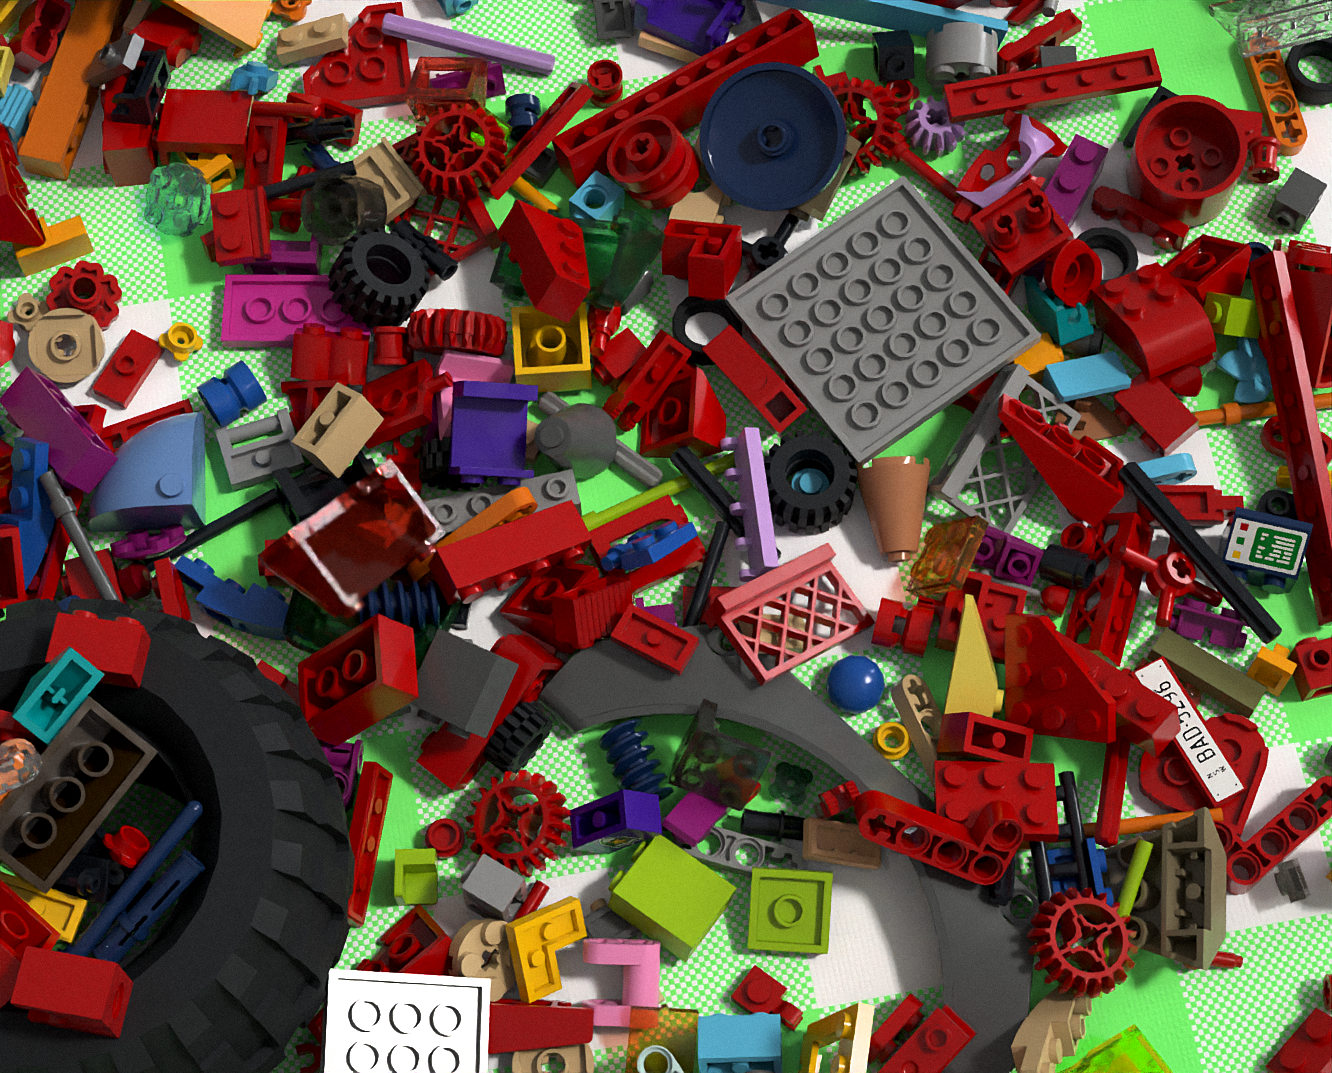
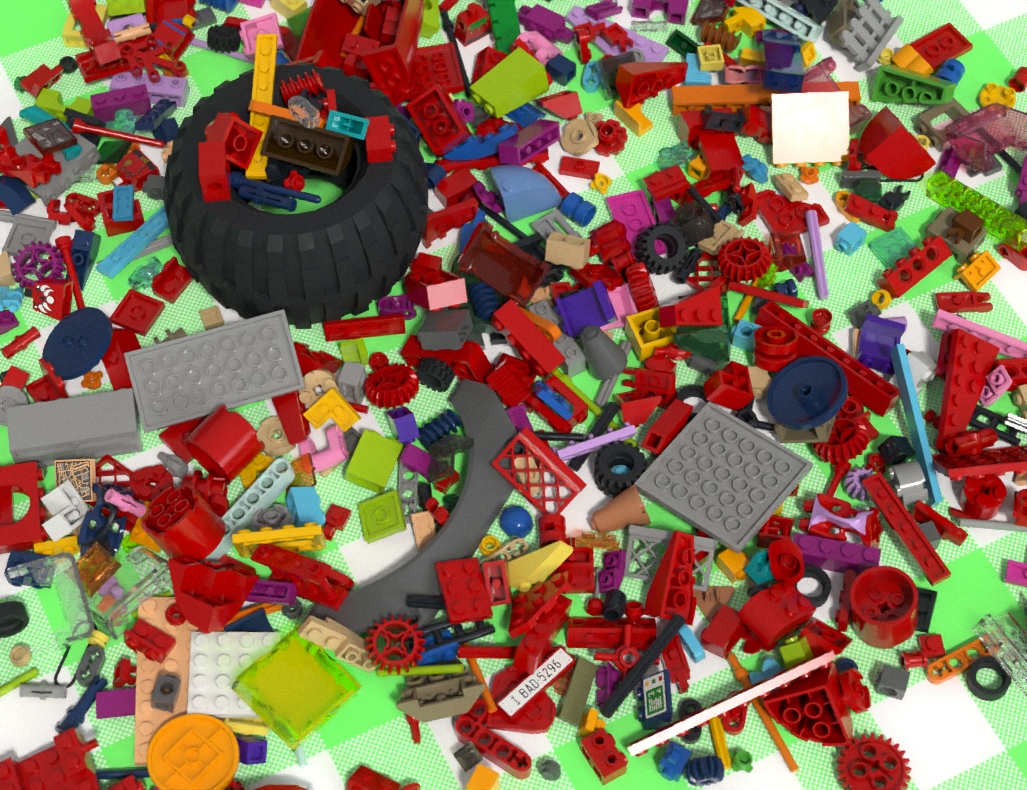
camera: 75 degrees right, 10 degrees down
(64, 510) = (484, 154): dark grey bar -> none
(115, 60) = (734, 102): flat silver plate -> none
(654, 639) = (499, 410): red plate -> none
(885, 818) = (427, 557): red beam -> none
(1021, 228) = (803, 526): red plate -> none
(1086, 376) = (729, 587): medium azure panel -> none

